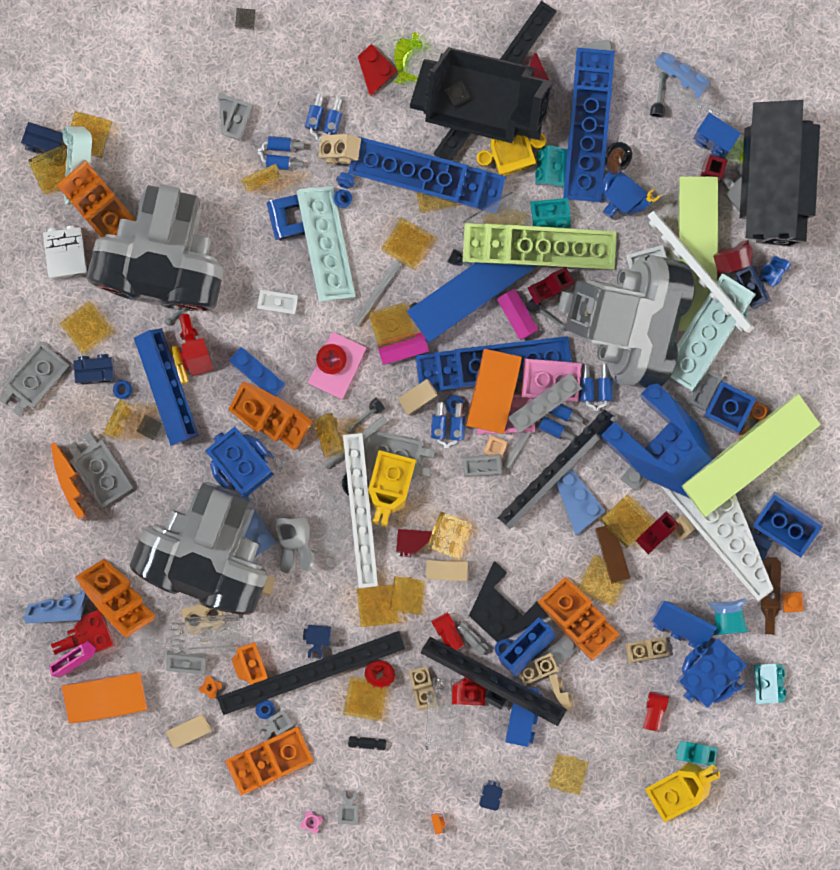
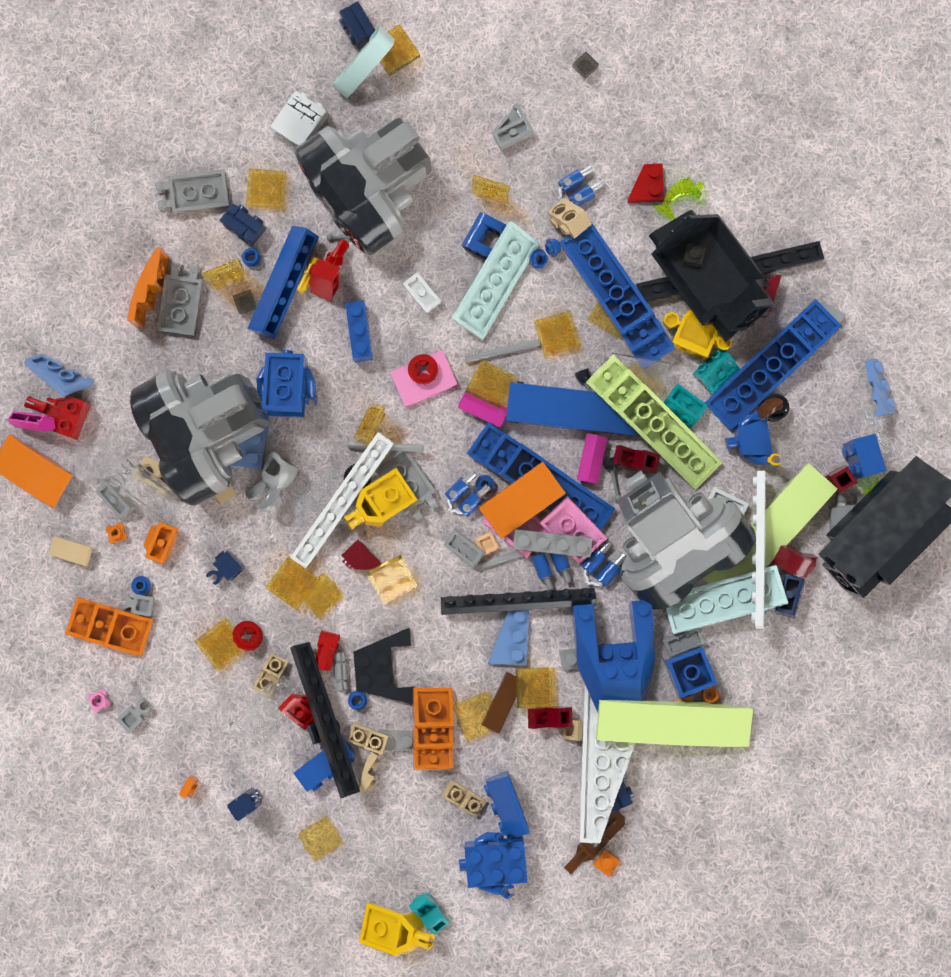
camera: 45 degrees right, 0 degrees up
(49, 168) = (342, 49): clear yellow plate -> none
(94, 200) = (353, 96): orange slope -> none
(115, 598) = (105, 404): orange slope -> none
(270, 414) = (340, 370): orange slope -> none
(281, 144) = (529, 180): blue piece -> none
(311, 673) = (199, 589): black plate -> none
(367, 743) = (192, 678): black axle -> none
(374, 407) = (424, 434): hinge -> none
(417, 397) = (462, 454): tan slope -> none
(447, 570) = (367, 603): tan slope -> none
(526, 647) = (374, 715): blue brick -> none
(655, 709) = (432, 848): red piece -> none
(658, 108) = (835, 398): hinge -> none
(729, 617) = (547, 832): teal hat -> none
(769, 683) = (533, 909): bracket -> none
(773, 272) = (816, 598): blue plate -> none
(787, 524) = (656, 801): blue slope -> none

